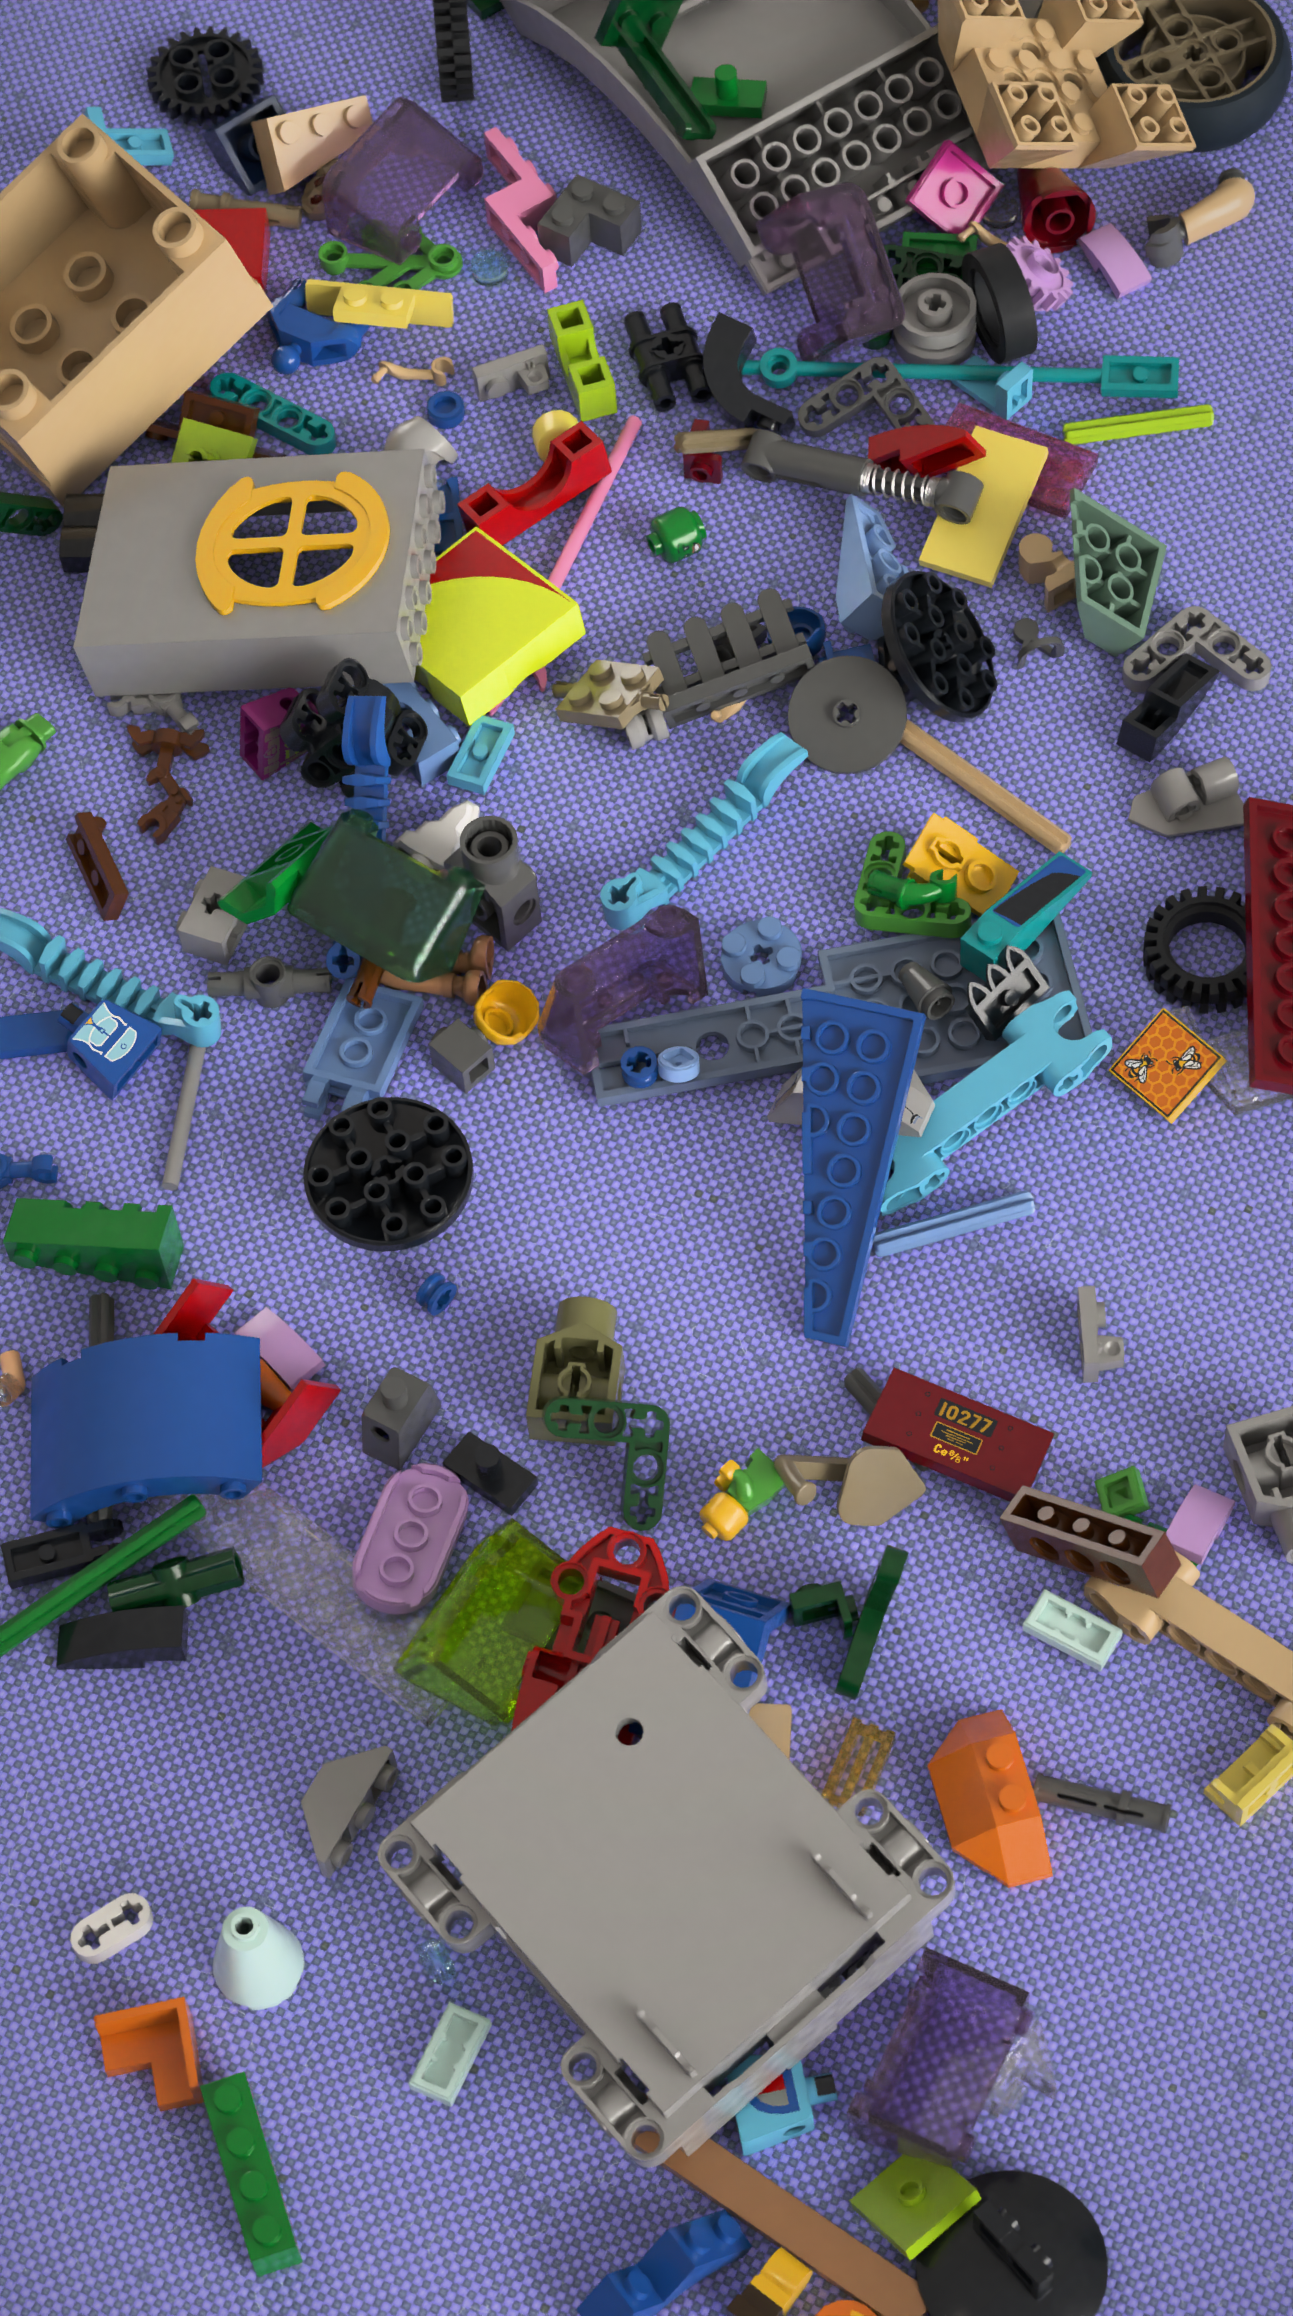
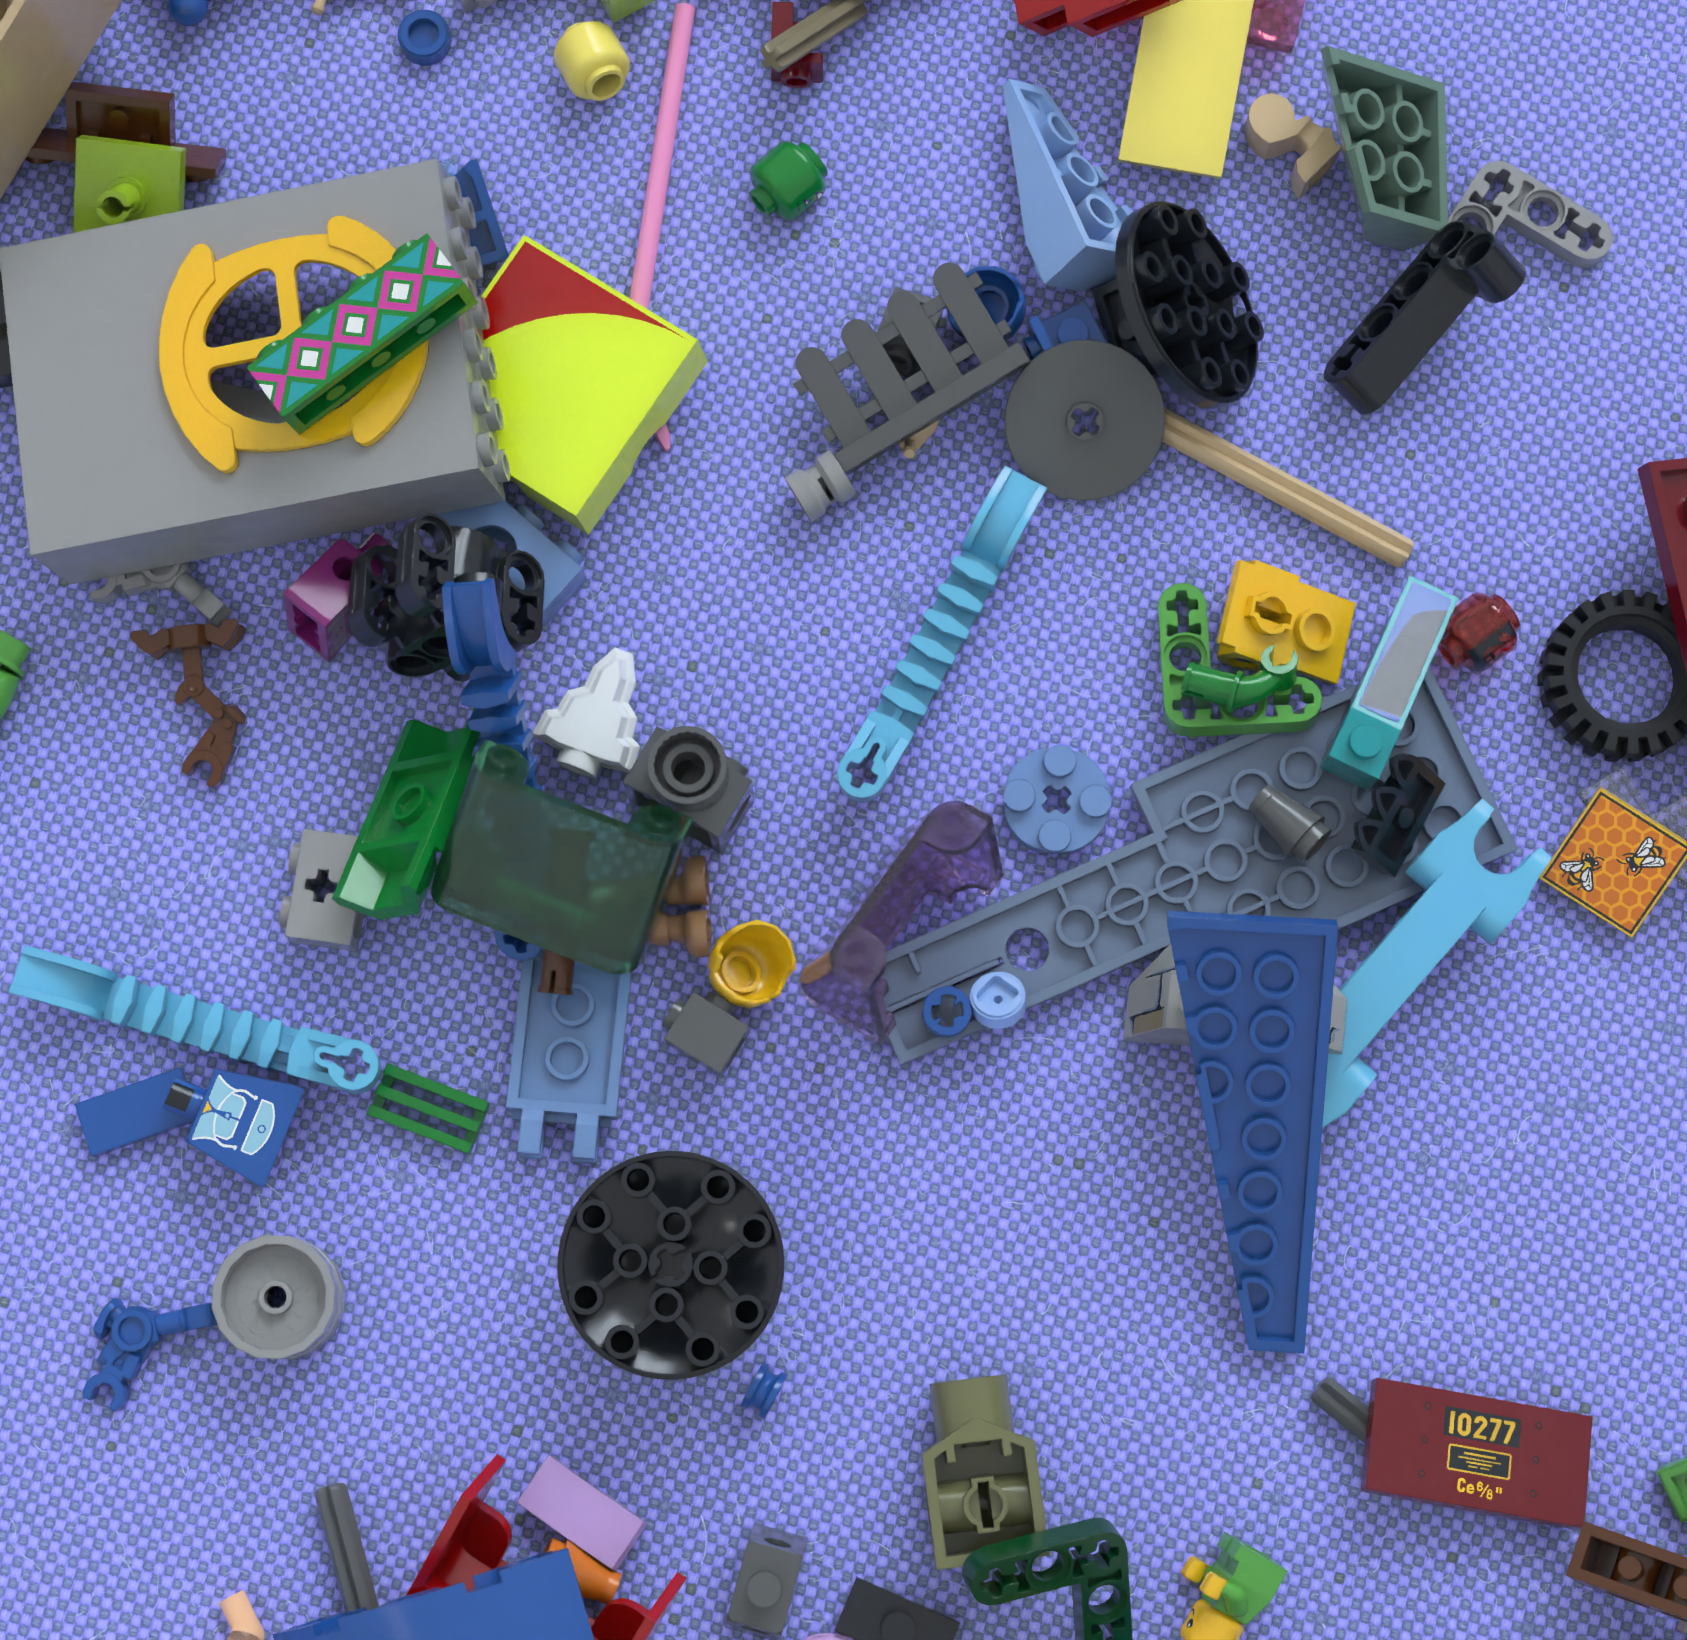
camera: 20 degrees left, 20 degrees up
(96, 1241) = (297, 1417): green wedge -> none
(97, 865) = (146, 846): reddish brown hinge -> none
(103, 1157) = (245, 1293): none -> light grey wheel
(183, 1118) = (363, 1197): light grey bar -> none
(222, 1053) = (384, 1092): none -> green tile
(268, 968) = (397, 985): dark grey pin -> none
(278, 409) = (194, 84): teal beam -> none
(339, 534) = (361, 333): none -> green brick
(420, 434) = (406, 121): light grey helmet -> none
(480, 754) = (613, 571): medium azure plate -> none
(572, 465) = (621, 113): red arch -> none
(610, 694) = (767, 455): dark tan plate -> none
(774, 458) = (891, 39): dark grey piece -> none
(874, 1484) = (1396, 1542): dark tan piece -> none
(953, 1223) = (1402, 1136): medium blue axle -> none
(1026, 633) = (1281, 239): dark grey piece -> none
(1096, 1350) = (1615, 1291): light grey hinge -> none
(1103, 900) = (1479, 632): none -> clear red head
(1143, 657) = (1419, 309): none -> black beam
(1166, 707) = (1489, 332): black slope -> none
(1190, 801) = (1555, 456): light grey panel -> none

